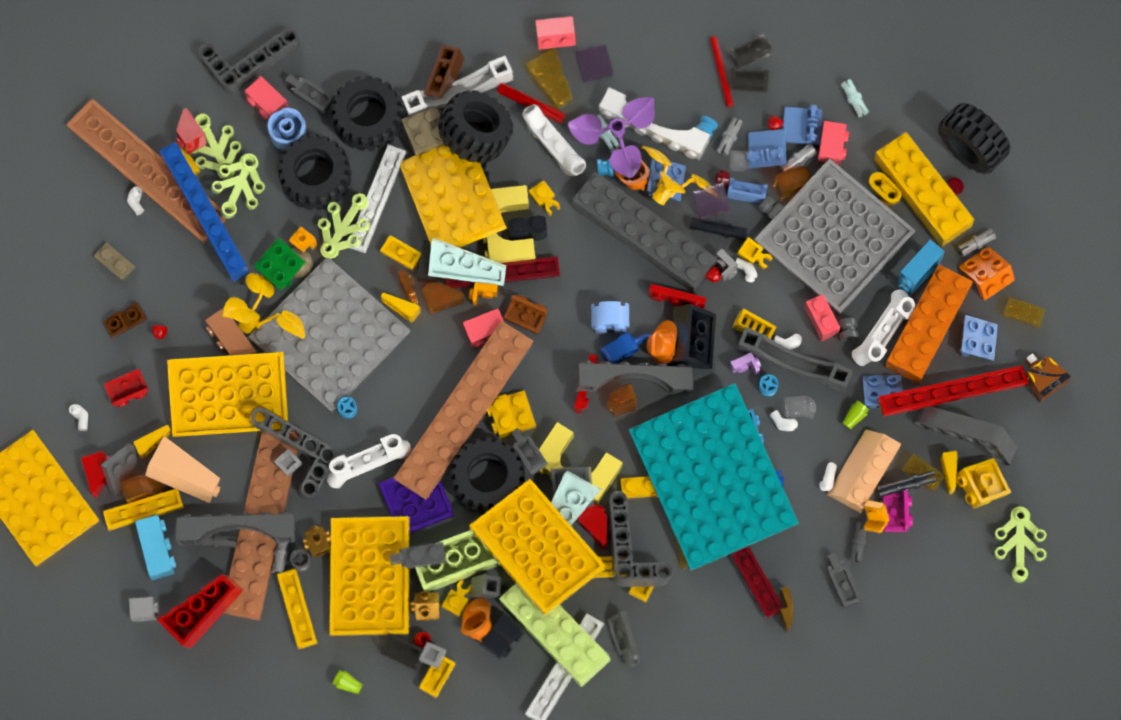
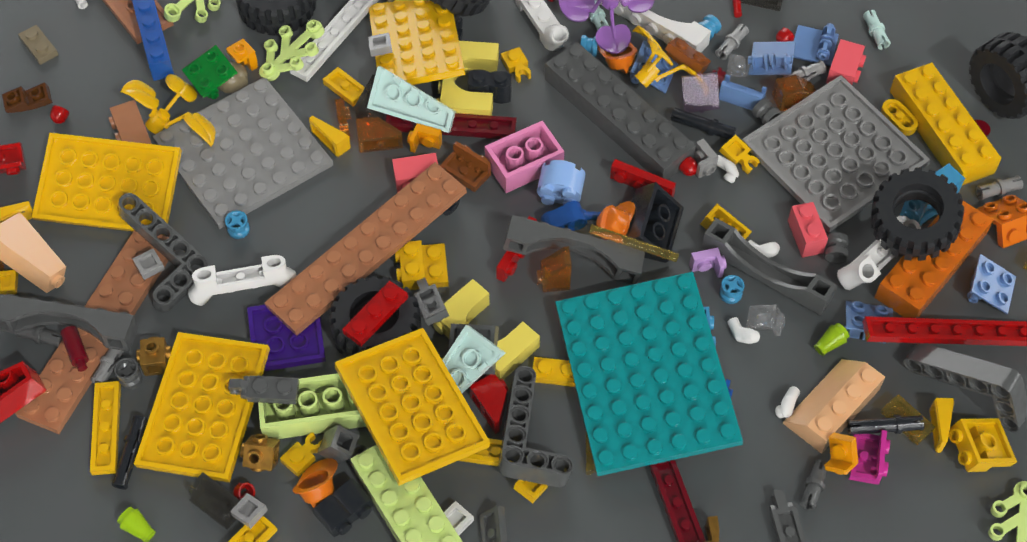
camera: 10 degrees right, 15 degrees down
(253, 549) = (75, 347): none -> dark red cylinder
(323, 625) = (132, 443): none -> black pin
(425, 213) = (380, 44): none -> light grey plate
(489, 474) = (375, 313): none -> red plate
(573, 295) = (520, 156): none -> bright pink brick
(682, 364) = (634, 243): none -> clear yellow bar
(694, 166) = (685, 54): none -> dark orange bracket
(908, 325) = (922, 187): none -> black tyre

